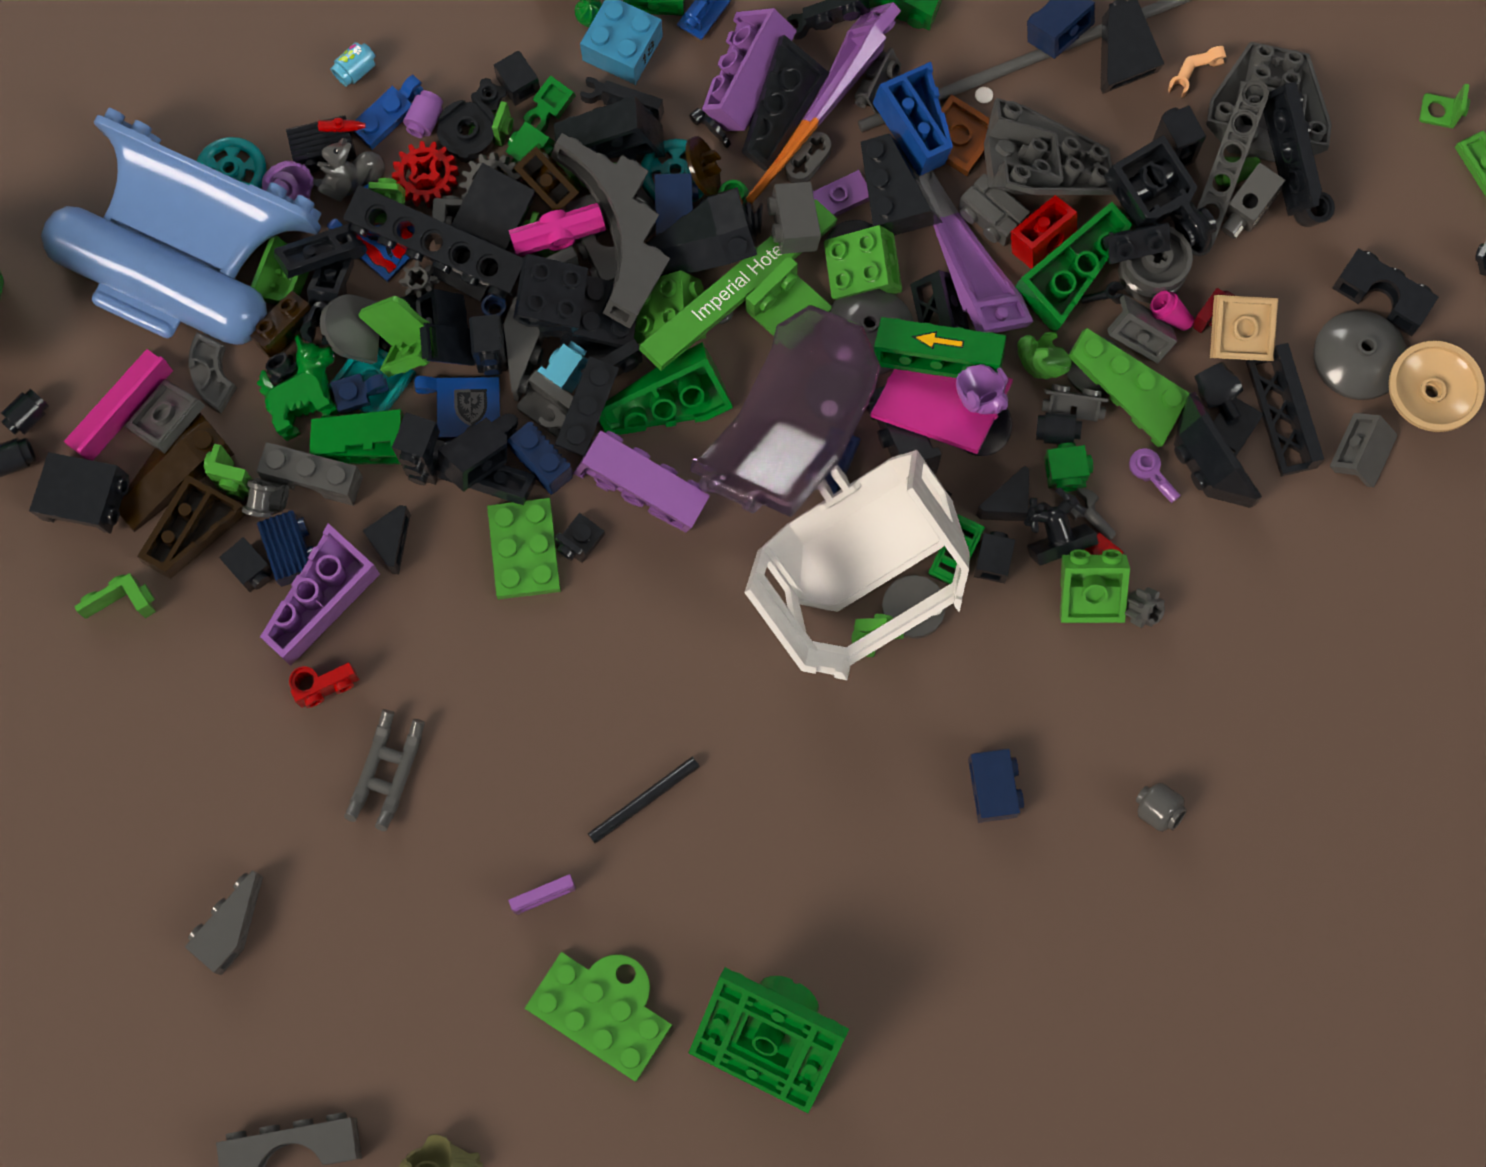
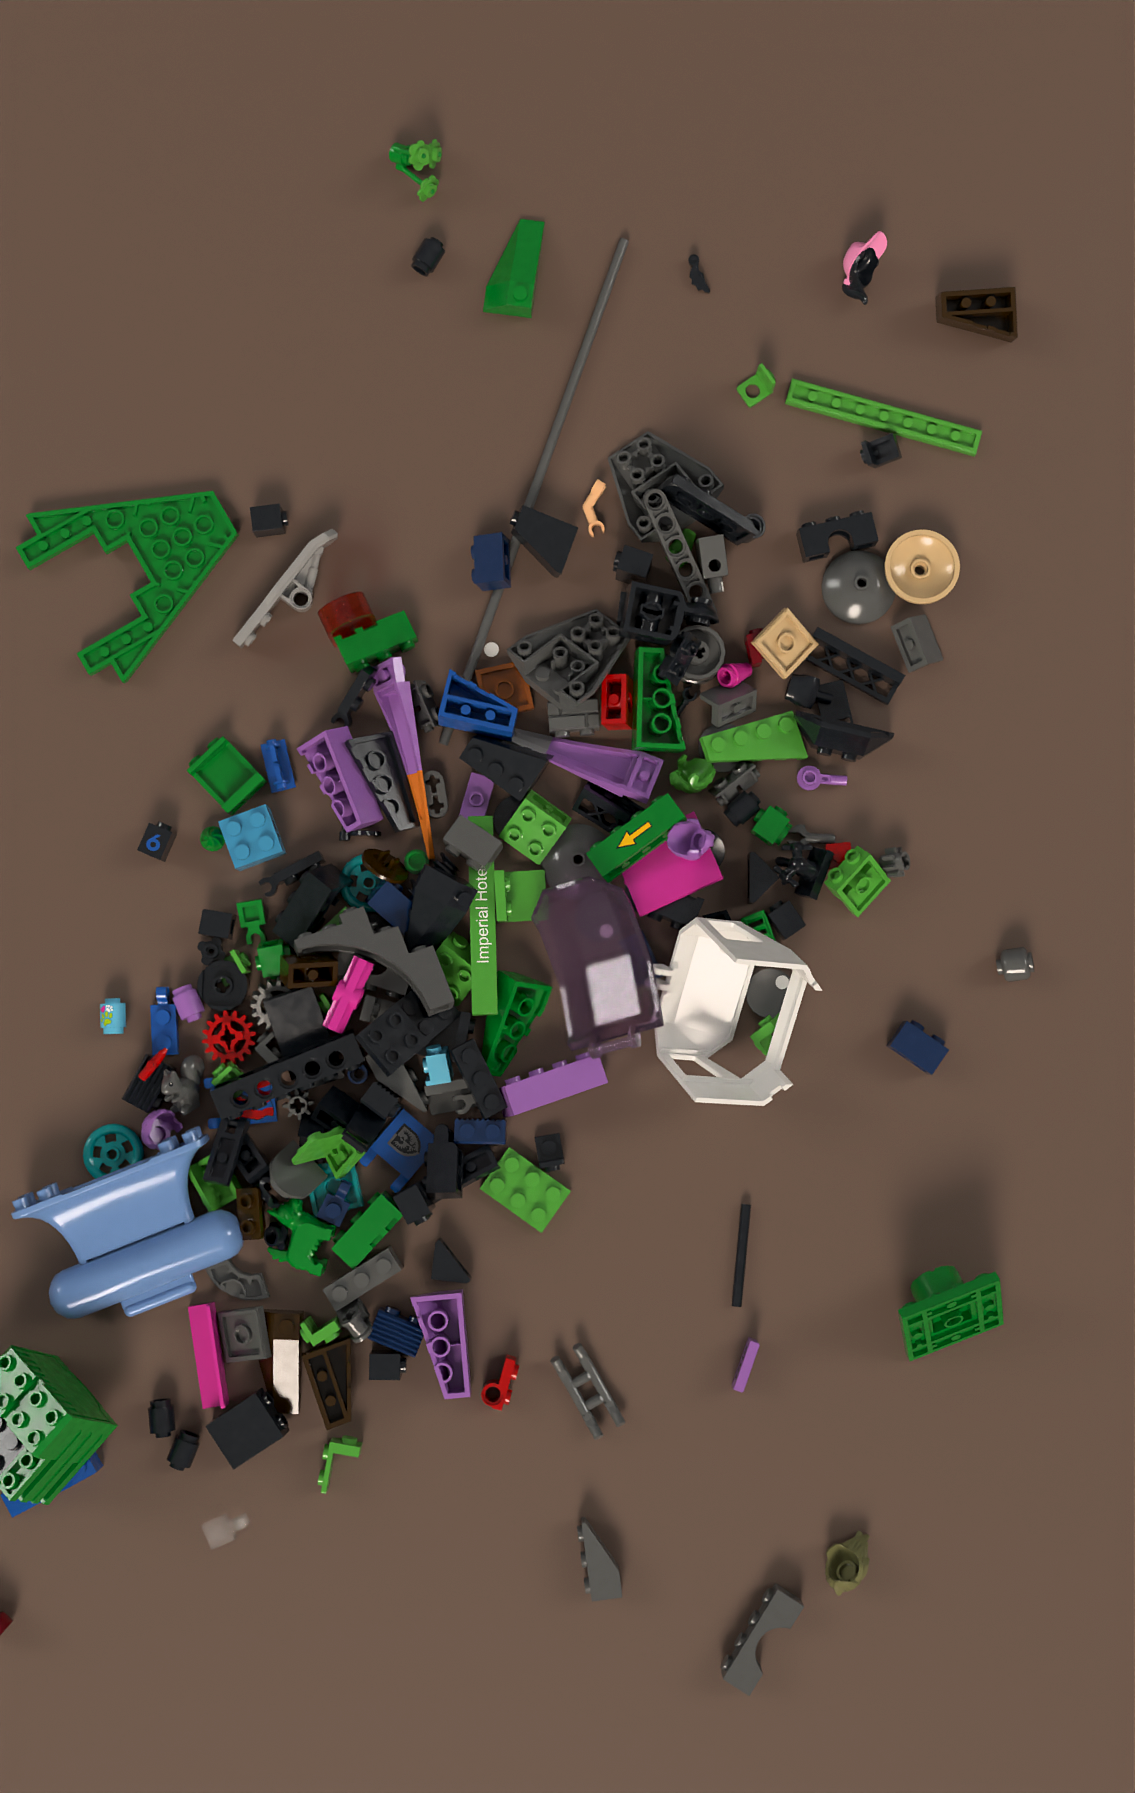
camera: 50 degrees left, 10 degrees up
(601, 1011) = (841, 1389): bright green plate -> none

